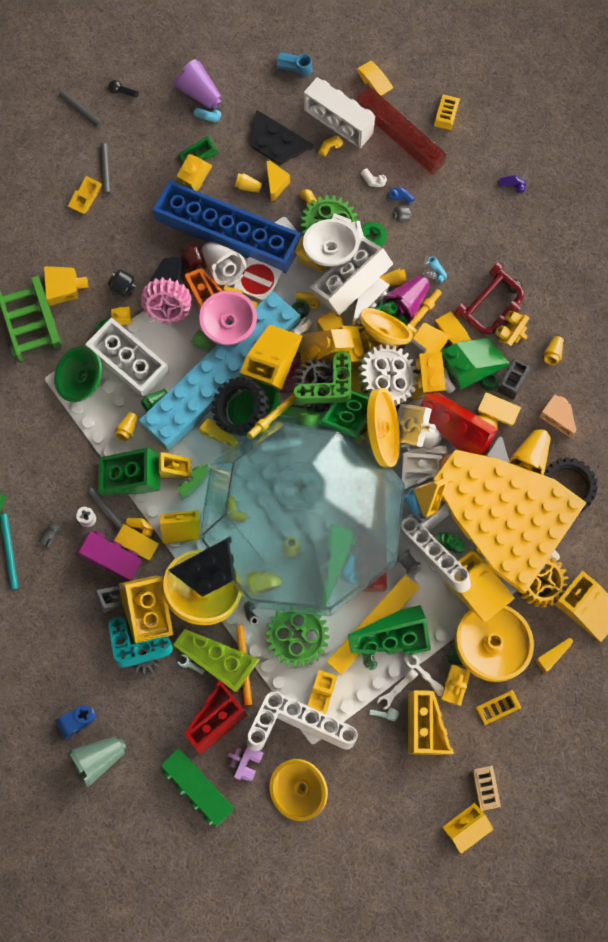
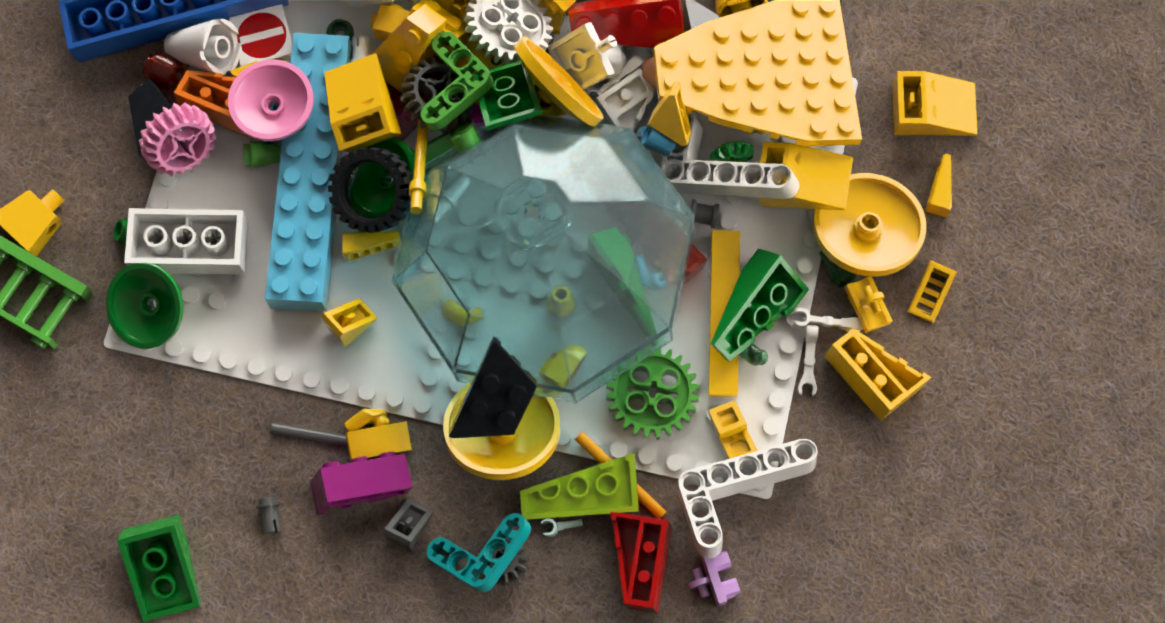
camera: 40 degrees left, 0 degrees up
(8, 552) = (237, 575): teal bar -> none
(86, 523) = (292, 452): white bush -> none
(122, 283) = (102, 164): black head -> none
(122, 315) = (134, 199): yellow plate -> none
(126, 427) = (254, 323): yellow cone -> none
(129, 473) = (303, 369): green slope -> none
(146, 608) = (456, 503): yellow slope -> none
(151, 399) = (257, 268): green cone -> none
(180, 526) = (416, 381): yellow panel -> none
(198, 476) = (386, 311): bright green slope -> none
(250, 615) = (581, 414): black arm -> none
(289, 795) = (800, 575): yellow dish -> none
(309, 298) = (339, 11): yellow arm -> none
(391, 715) = (826, 394): light aqua hand -> none
(468, 828) = (1009, 444): yellow panel -> none
(479, 789) = (977, 388): tan slope -> none
(555, 587) = (873, 108): yellow gear -> none

